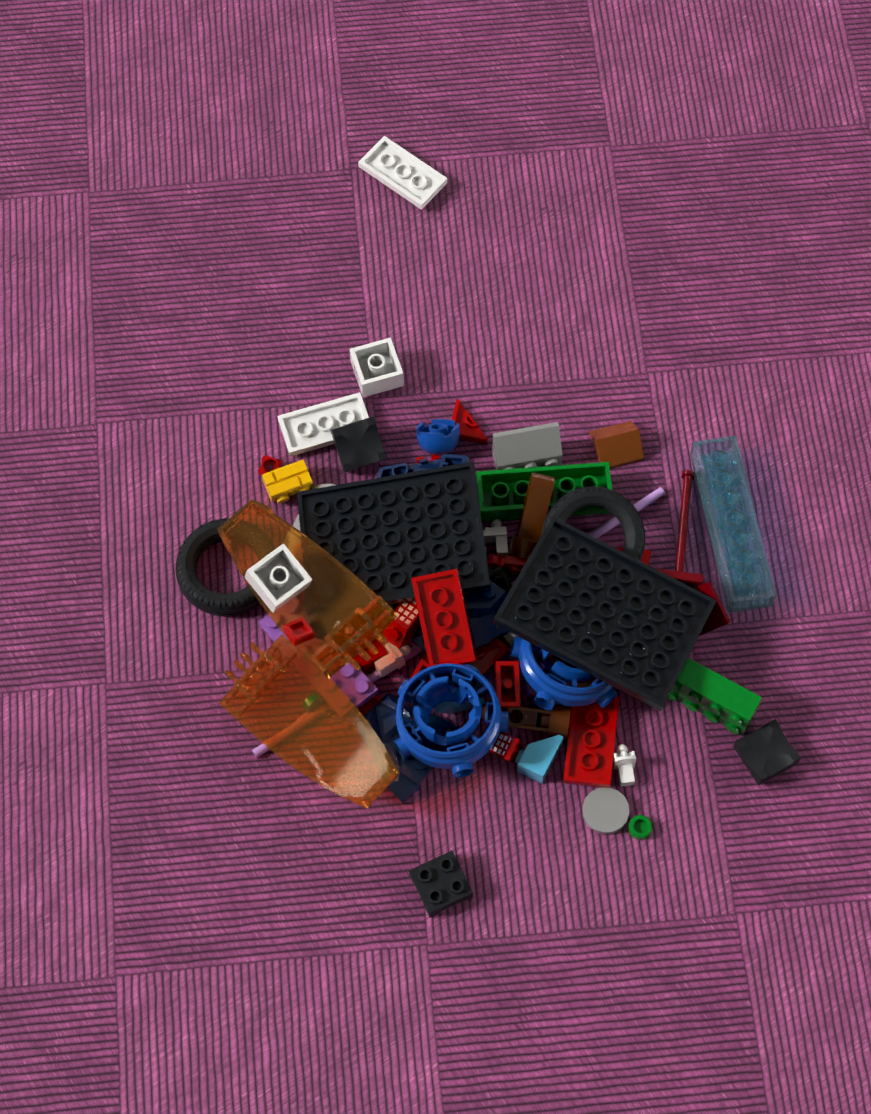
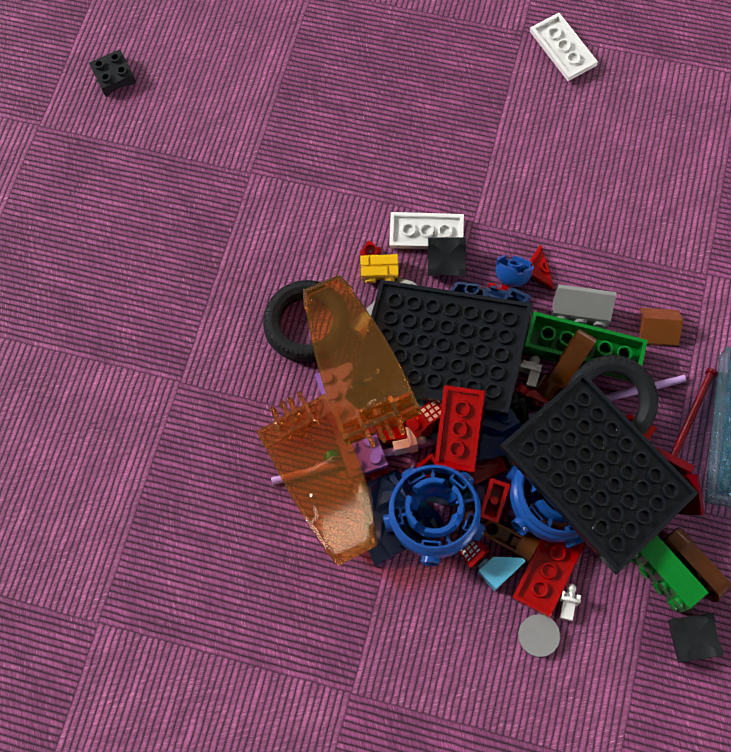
camera: 25 degrees right, 5 degrees up
(278, 578) = (336, 347): white brick -> none
(298, 631) = (338, 397): red tile -> none
(376, 367) = (484, 198): white brick -> none
(441, 883) = (379, 646): black brick -> none
(640, 827) = (563, 661): green tile -> none
(745, 676) = (698, 564): none -> reddish brown beam

